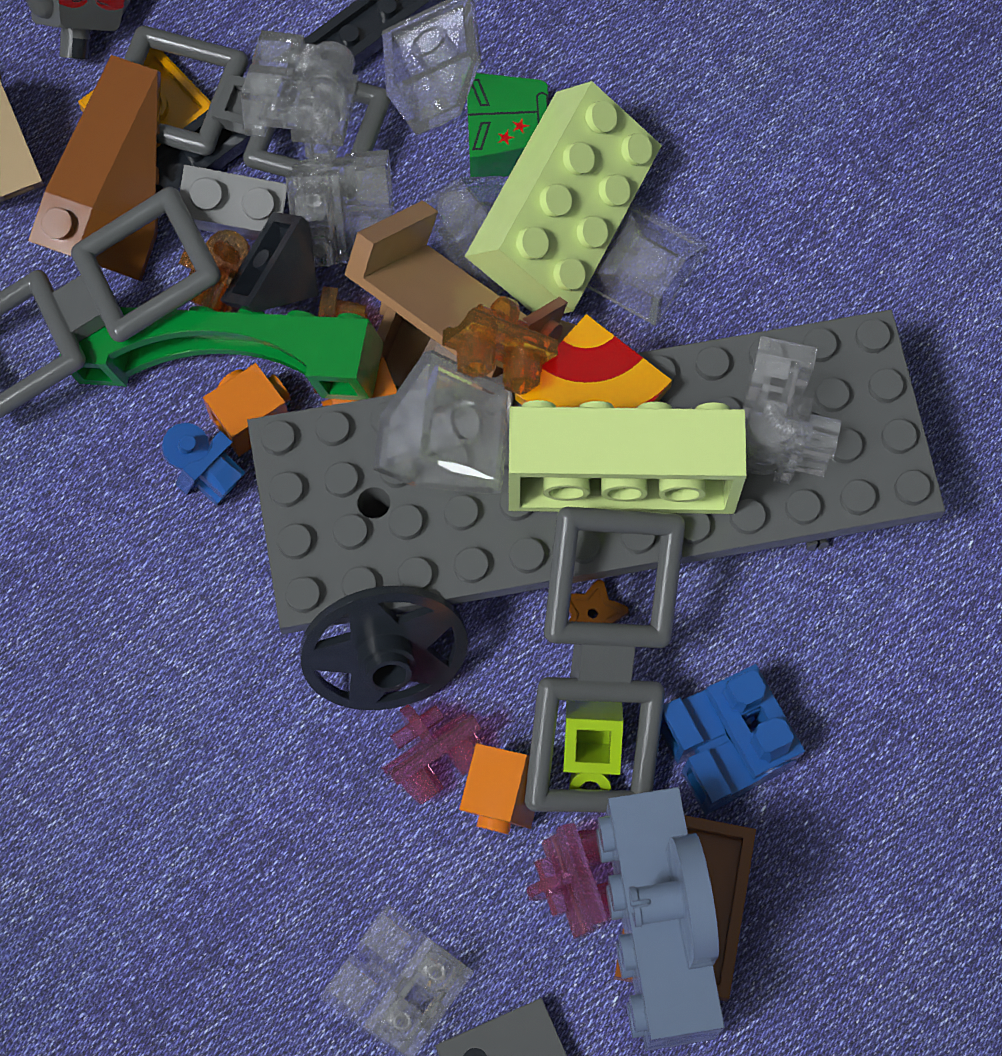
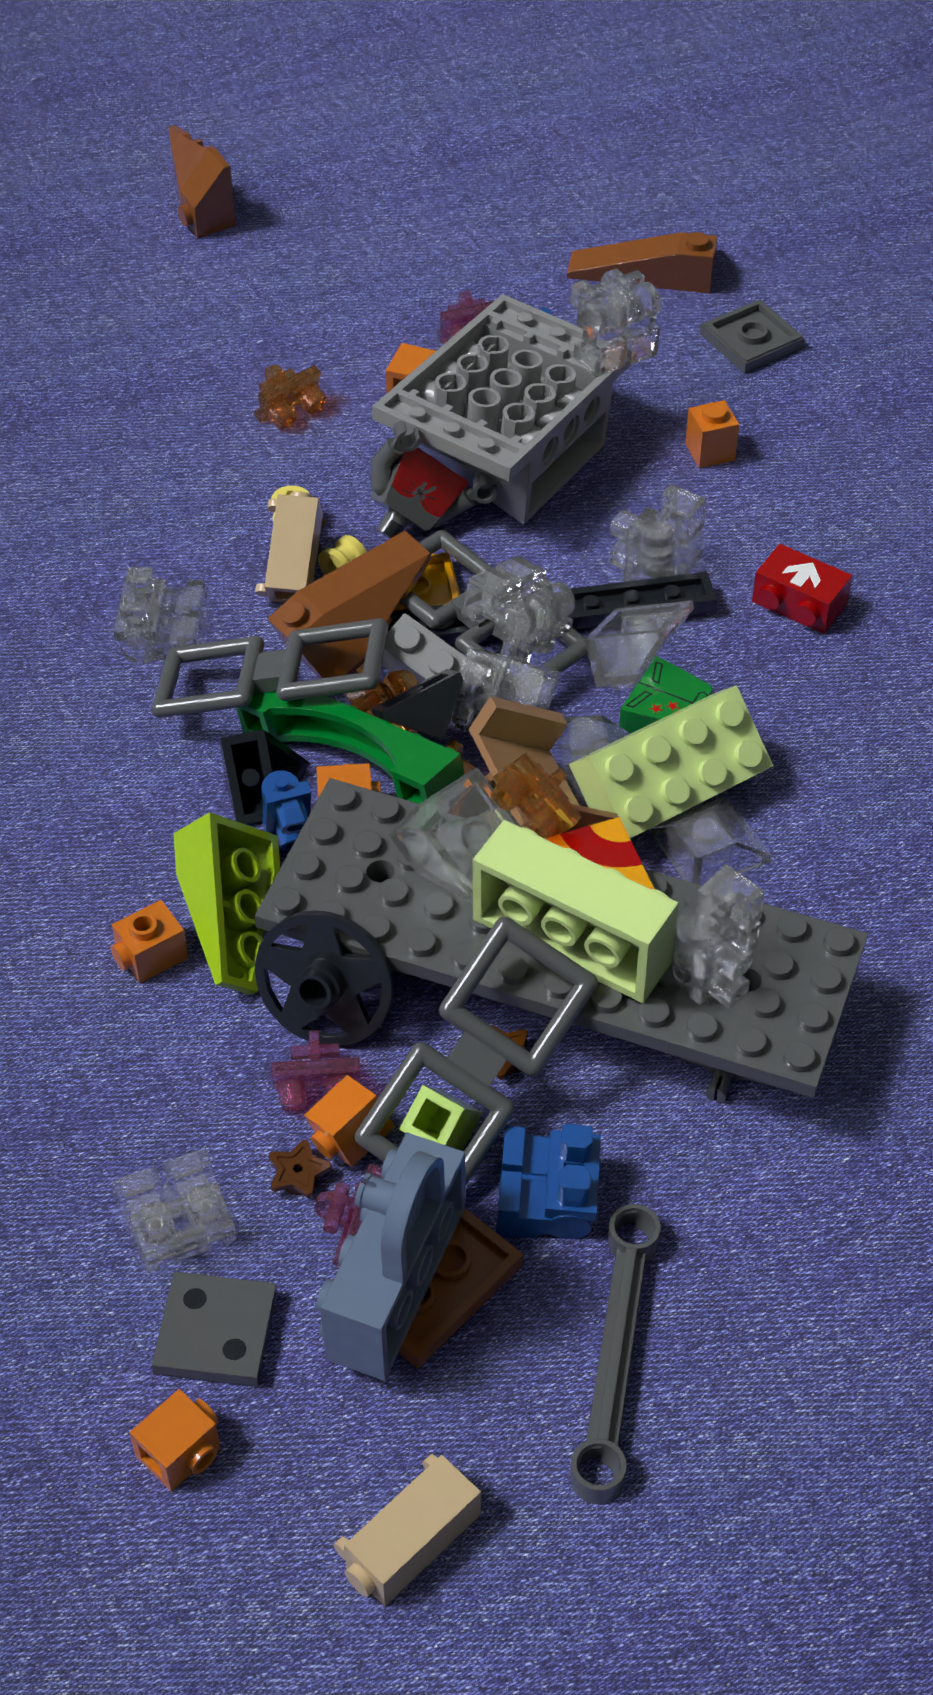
camera: 30 degrees right, 20 degrees down
(51, 115) = (345, 550): none -> light yellow wheel
(131, 434) = (247, 762): none -> black slope
(159, 696) = (149, 942): none -> orange brick
(193, 583) = (224, 880): none -> lime wedge
(476, 877) = (298, 1182): none -> reddish brown plate
(895, 874) = (616, 1354): none -> dark grey piece

